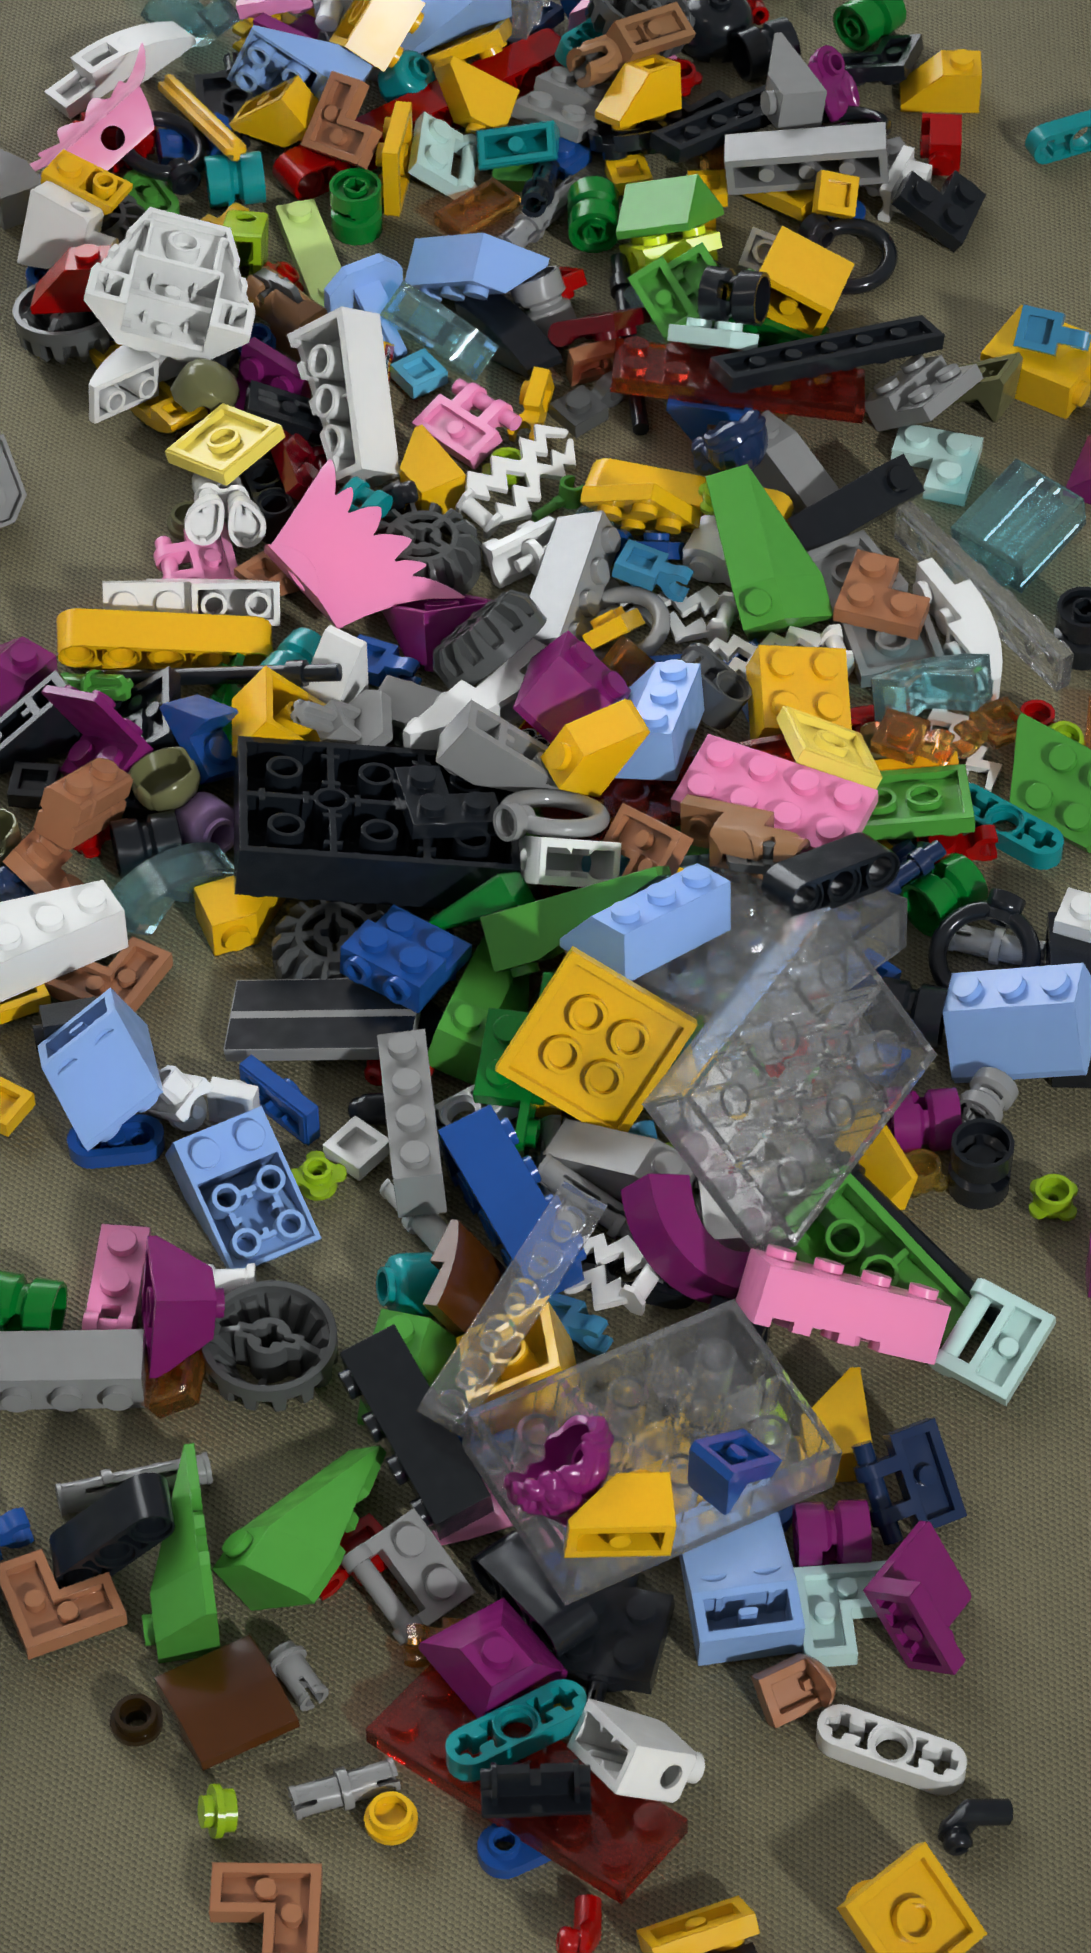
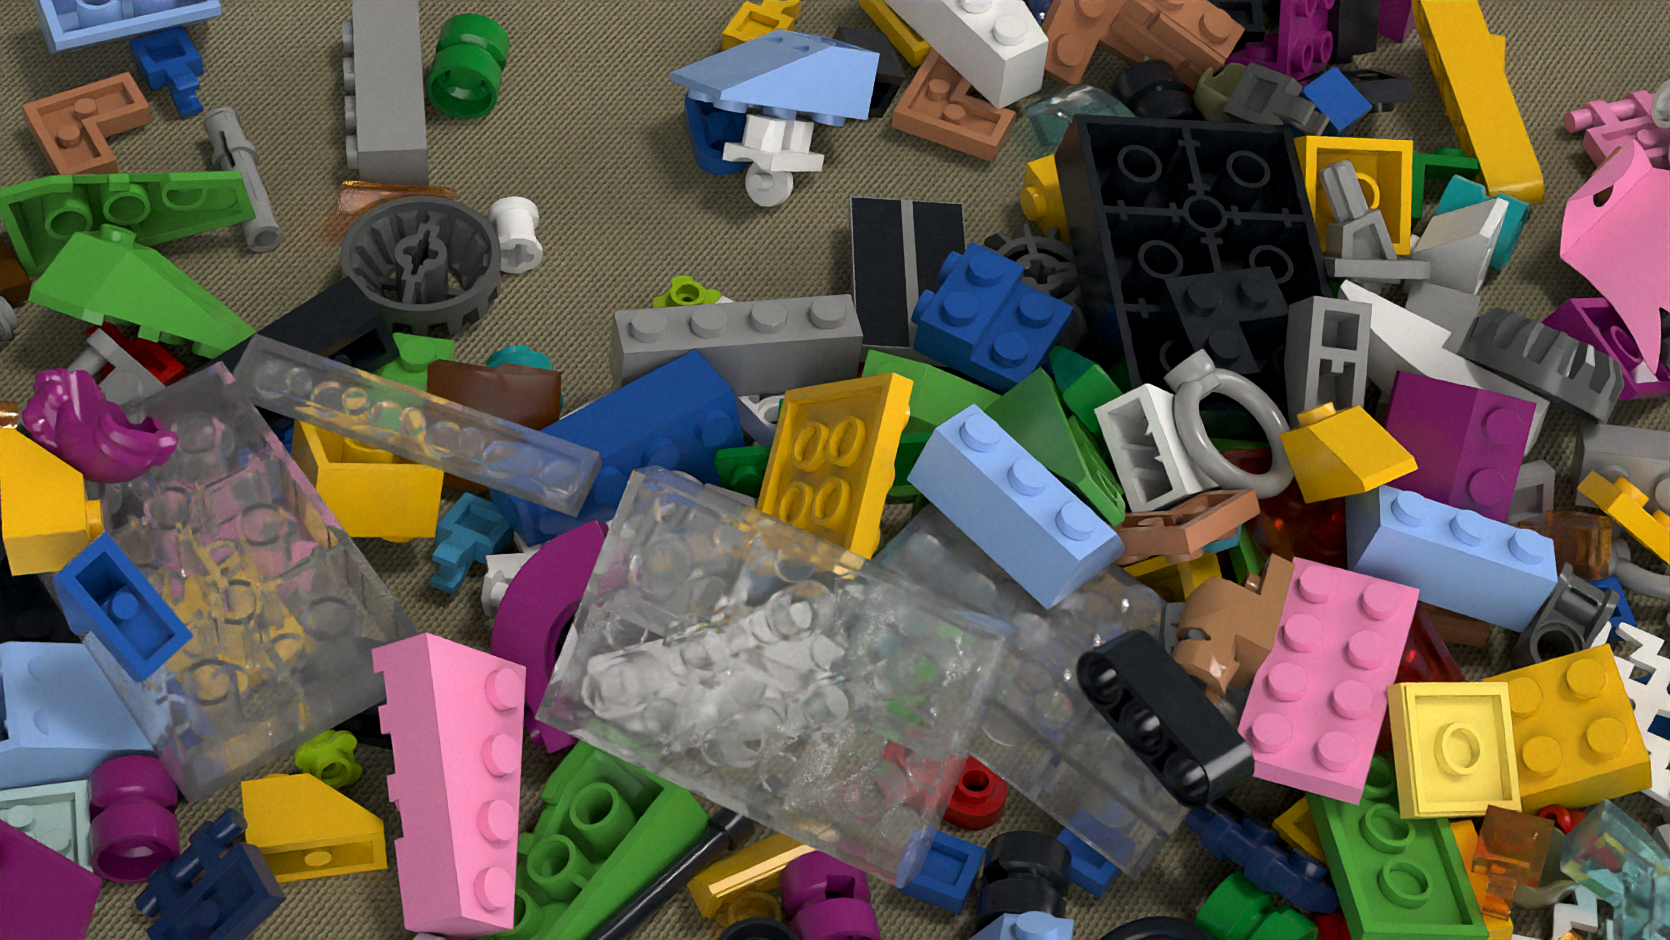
camera: 80 degrees right, 0 degrees up
(113, 685) = (1392, 46): bright green axle -> none
(113, 1530) = (144, 140): black beam -> none
(117, 1278) = (517, 150): bright pink plate -> none
(176, 1305) = (448, 150): magenta slope -> none
(196, 596) = (1552, 111): white slope -> none
(209, 745) = (1271, 99): none -> dark grey plate
(231, 1098) = (783, 218): white plate -> none
(242, 1190) = (649, 229): light blue slope -> none
(282, 1100) = (791, 255): blue plate -> none
(296, 671) = (1433, 186): black bar -> none
(385, 660) = (1525, 293): blue plate -> none

